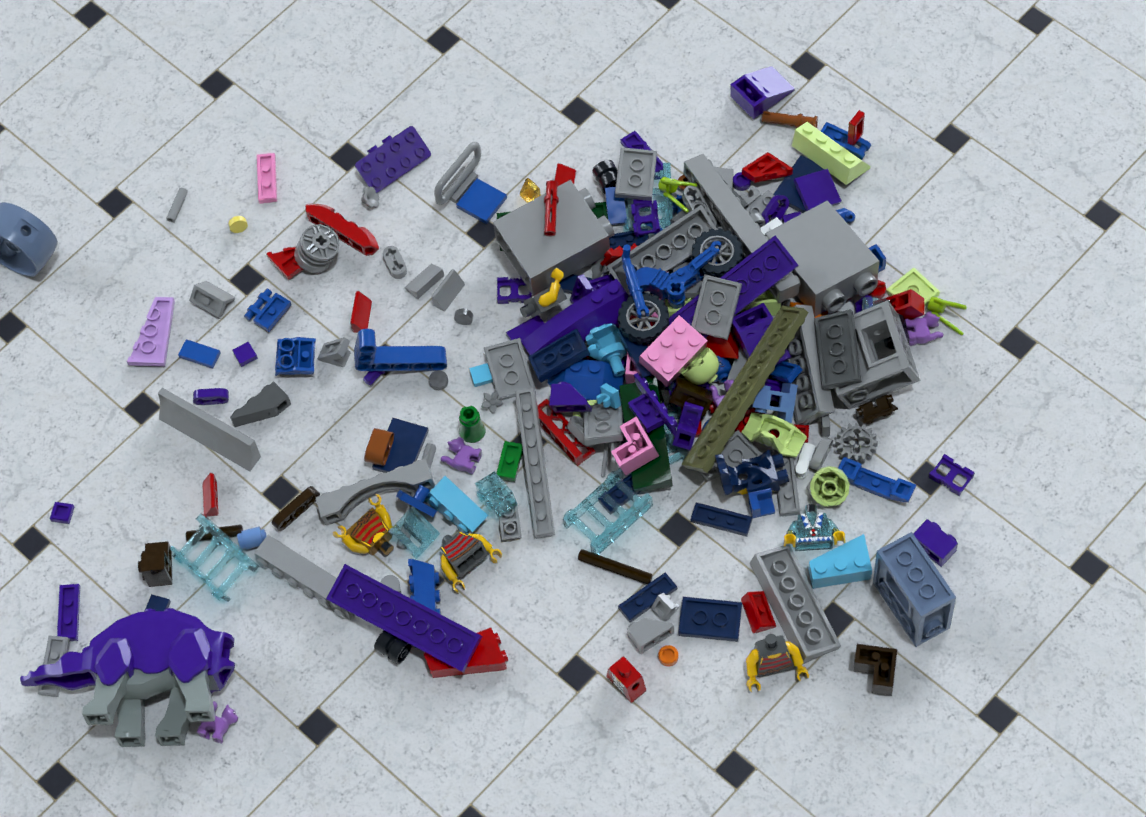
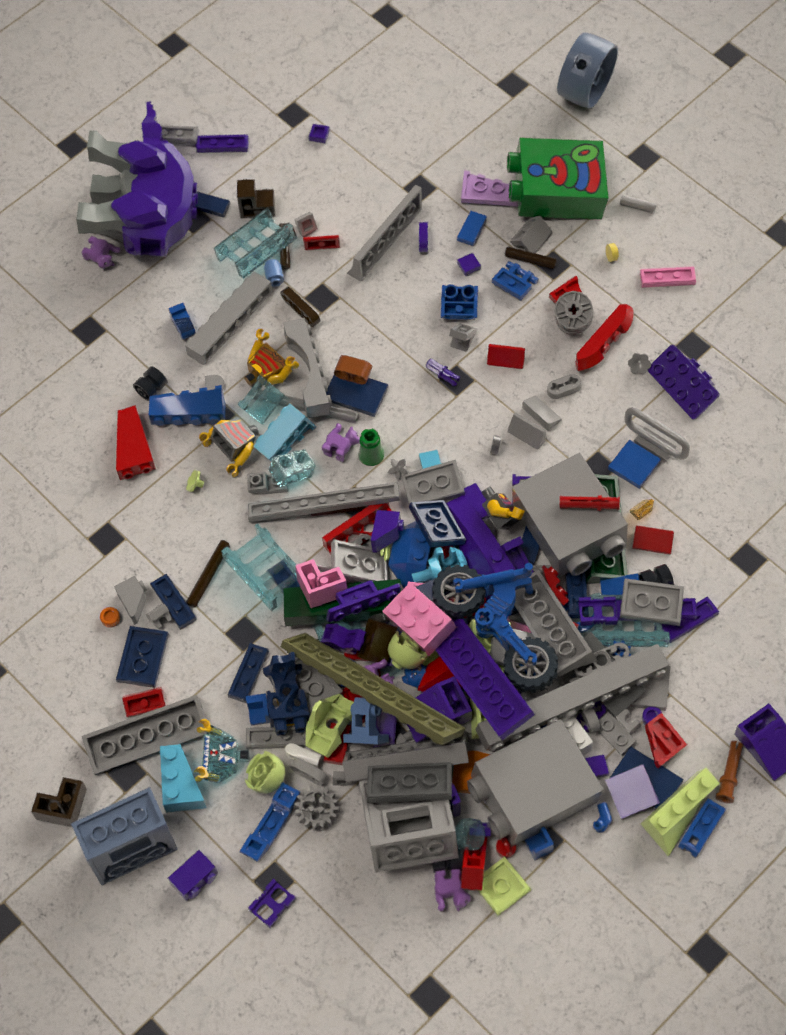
camera: 90 degrees right, 0 degrees up
(150, 266) = (558, 178): none -> green brick
(188, 511) = (306, 224): none -> light grey tile
(239, 297) = (530, 257): none -> dark brown axle
(265, 405) = (412, 282): dark grey slope -> none
(313, 624) = (182, 321): none -> blue leg
(396, 358) = (446, 380): blue beam -> none
(404, 618) = (166, 385): dark purple plate -> none
(418, 500) = (289, 394): blue tile -> none
(438, 380) = (427, 424): flat silver tile -> none
(509, 461) = (329, 482): green plate -> none
(510, 590) = (194, 481): none -> yellowish green plant
(609, 396) = (387, 568): medium azure tile -> none
(624, 677) = (86, 575): red torso -> none
(670, 186) = (632, 632): lime plant -> none
(716, 306) = (465, 660): light grey tile -> none
(771, 657) = (87, 708): torso -> none
(773, 208) = (609, 742): dark purple beam -> none
(786, 372) = (398, 736): blue tile -> none
(856, 128) = (705, 832): red tile -> none
(868, 413) = (355, 837): dark brown hinge -> none
(938, 306) = (478, 910): lime plant -> none

